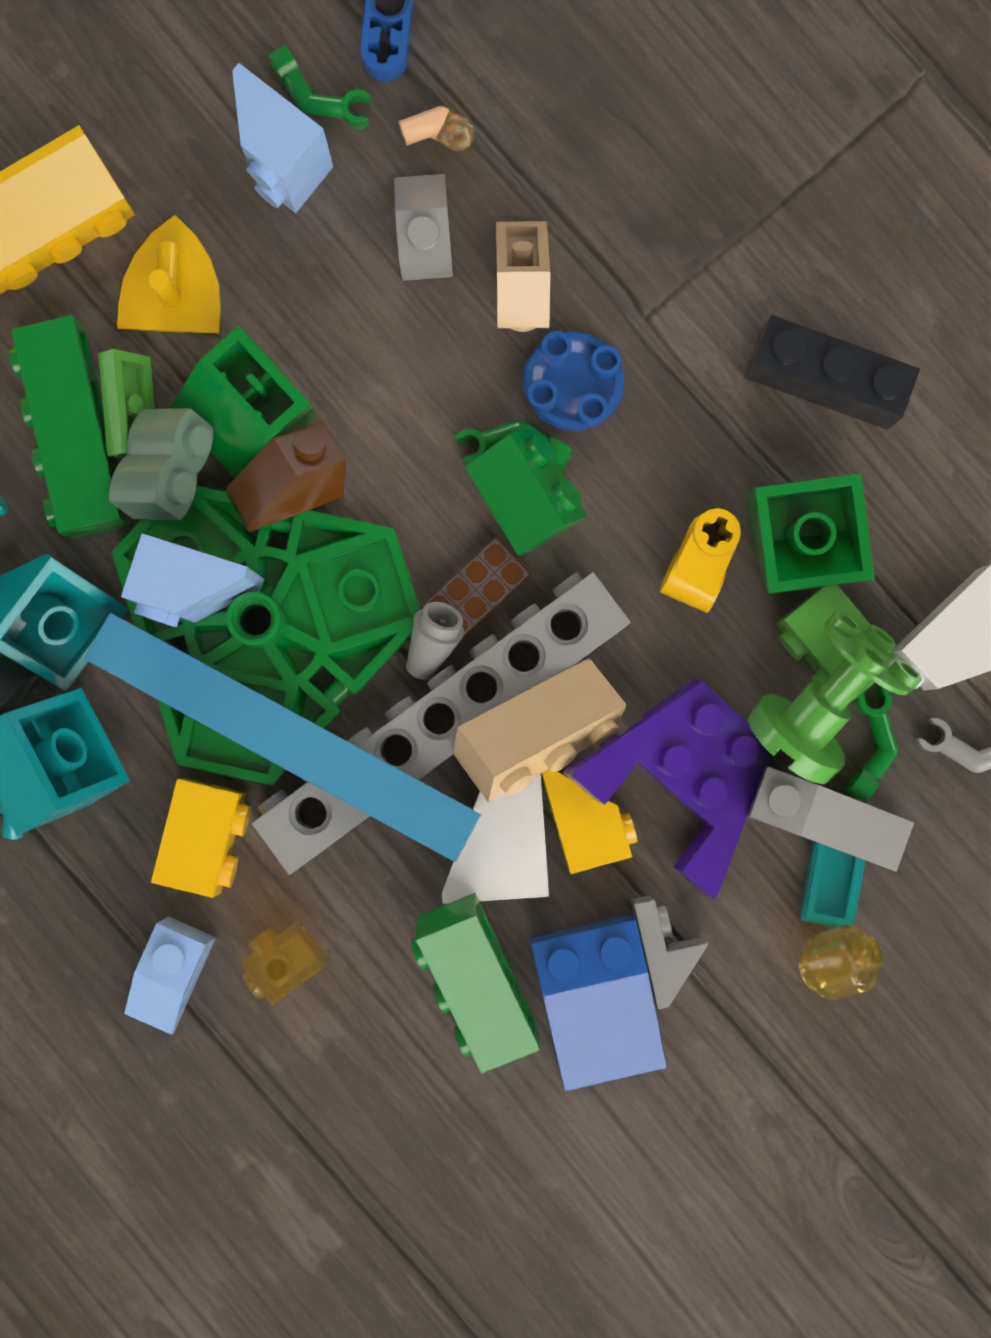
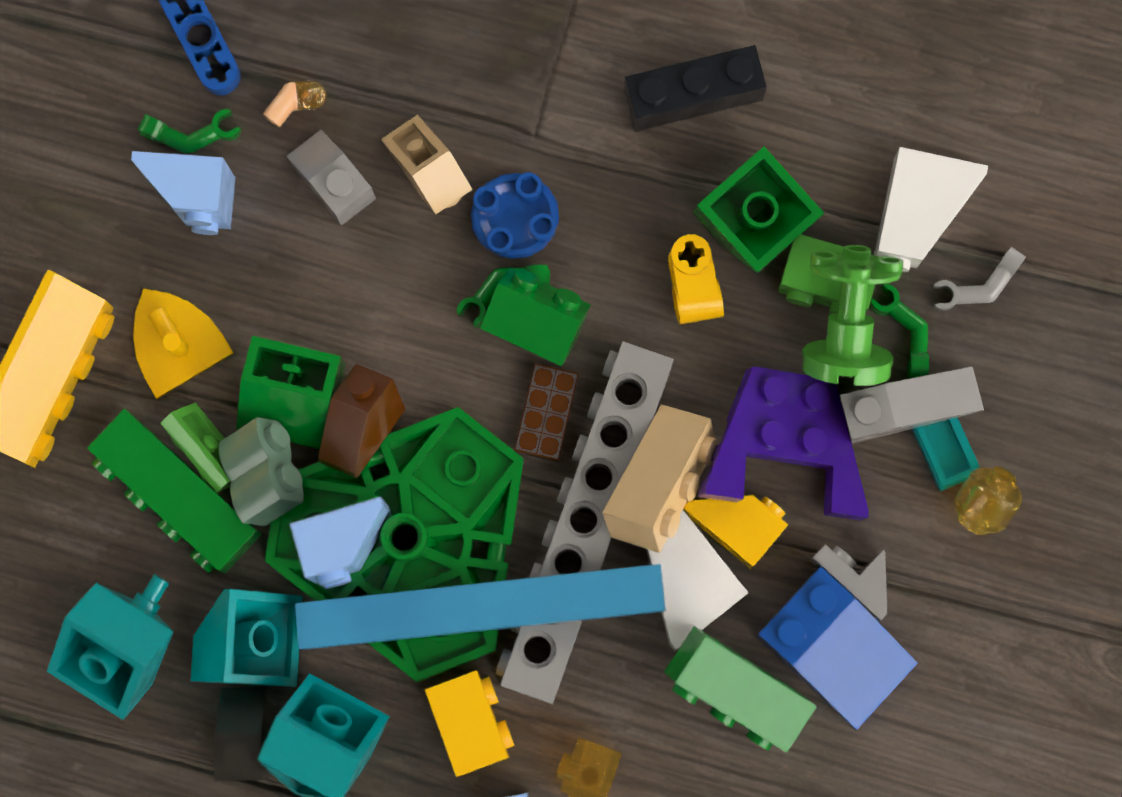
camera: 25 degrees left, 5 degrees down
(433, 638) = (540, 464): light grey cone -> none

